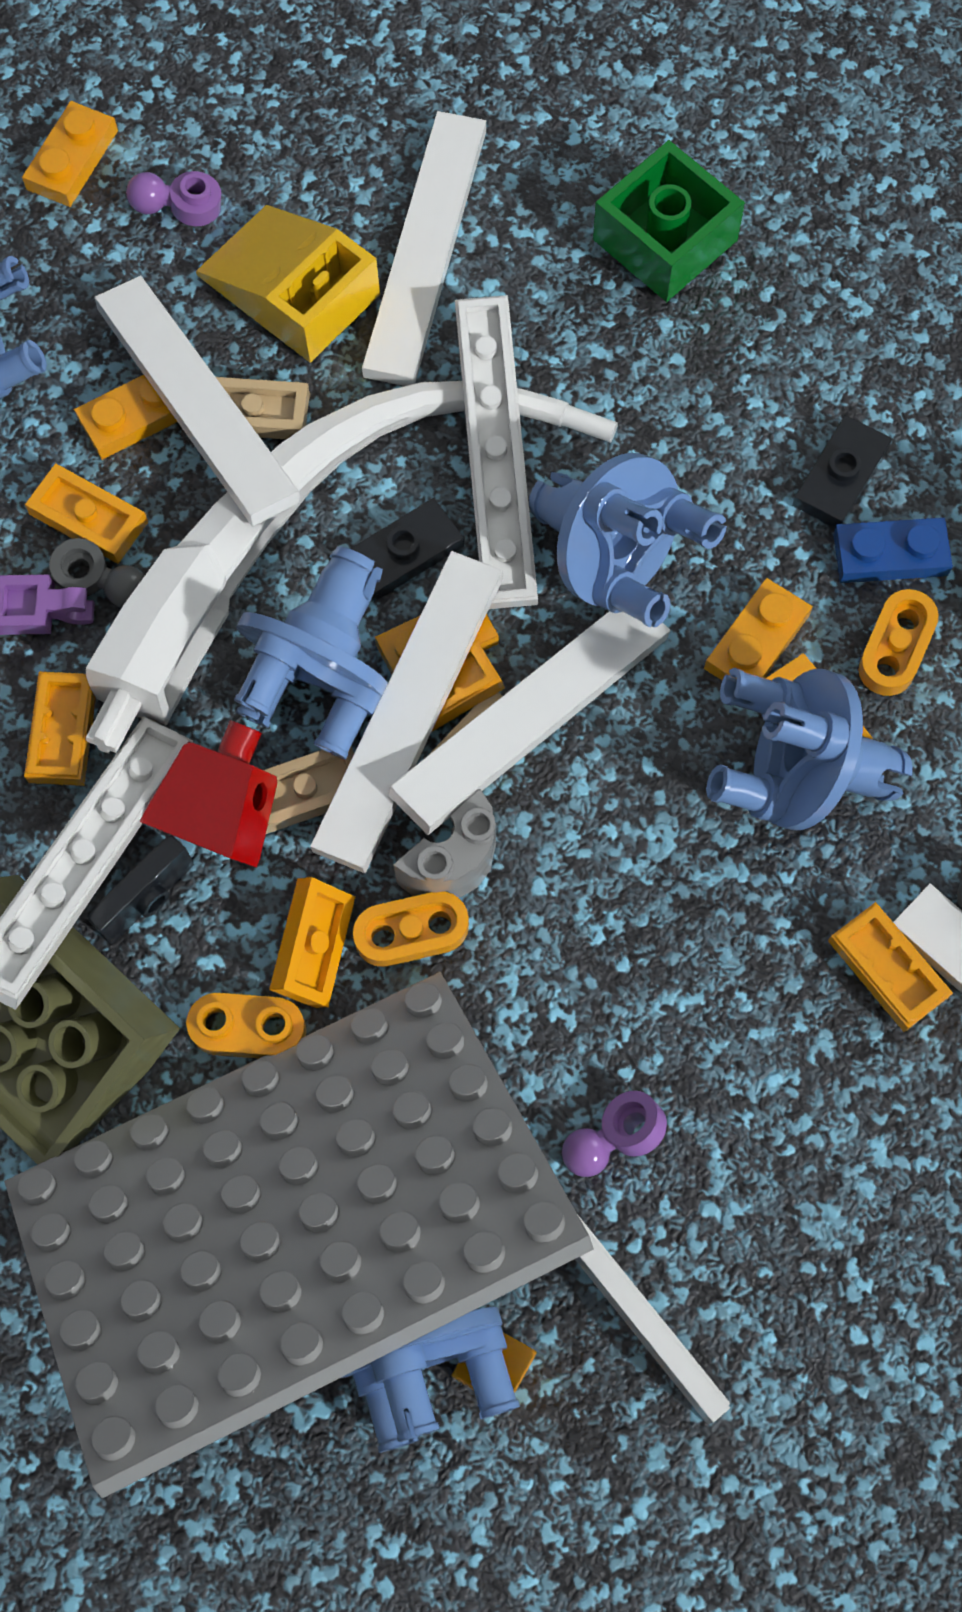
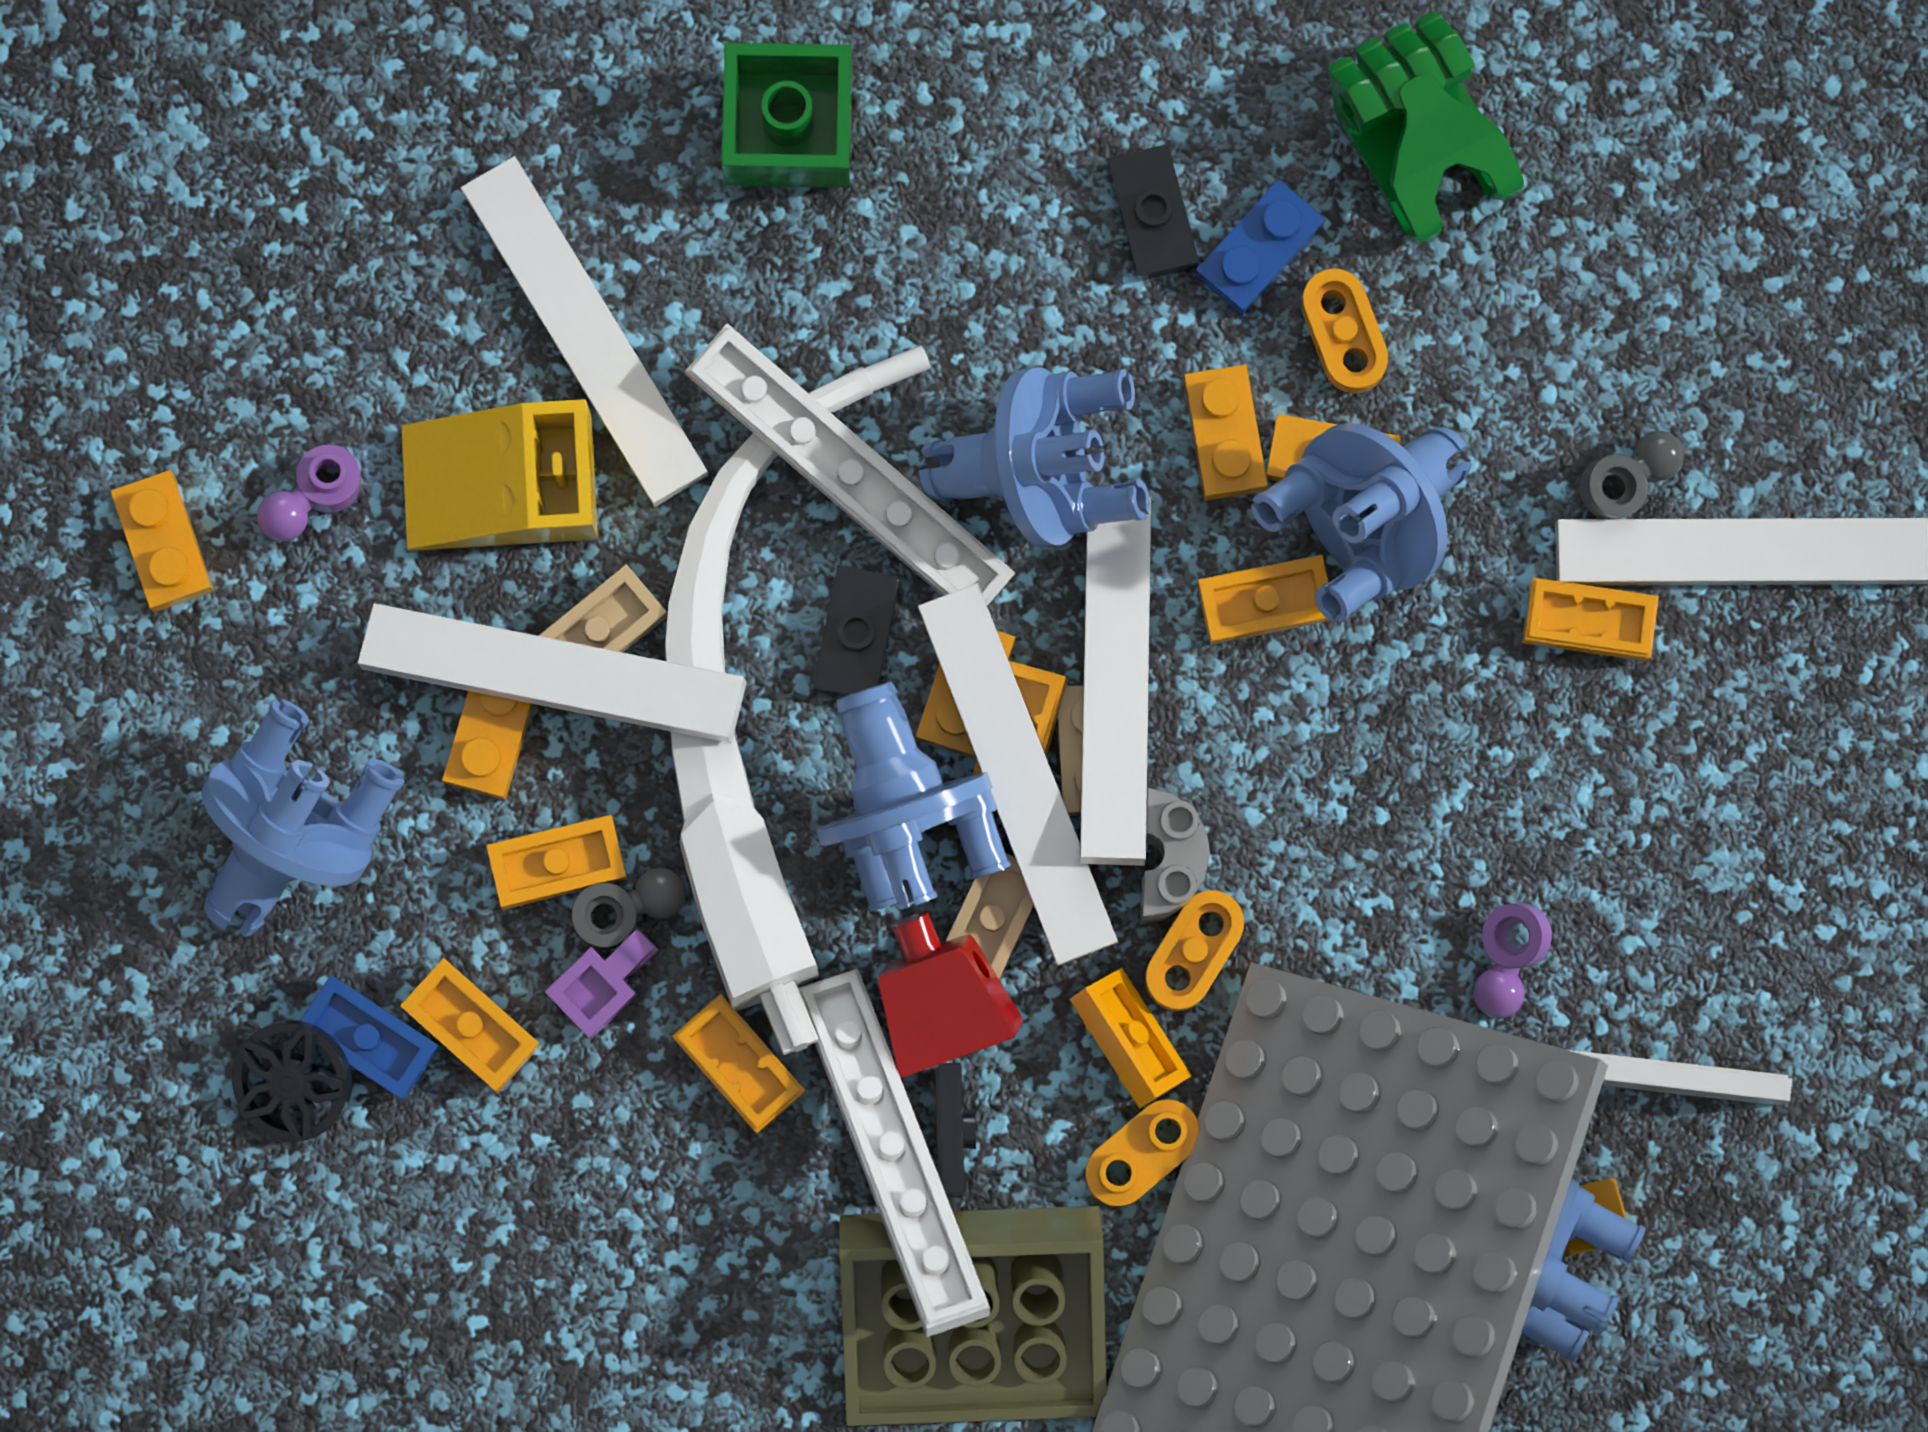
camera: 50 degrees left, 10 degrees up
(676, 753) = (1262, 599): none -> light orange plate

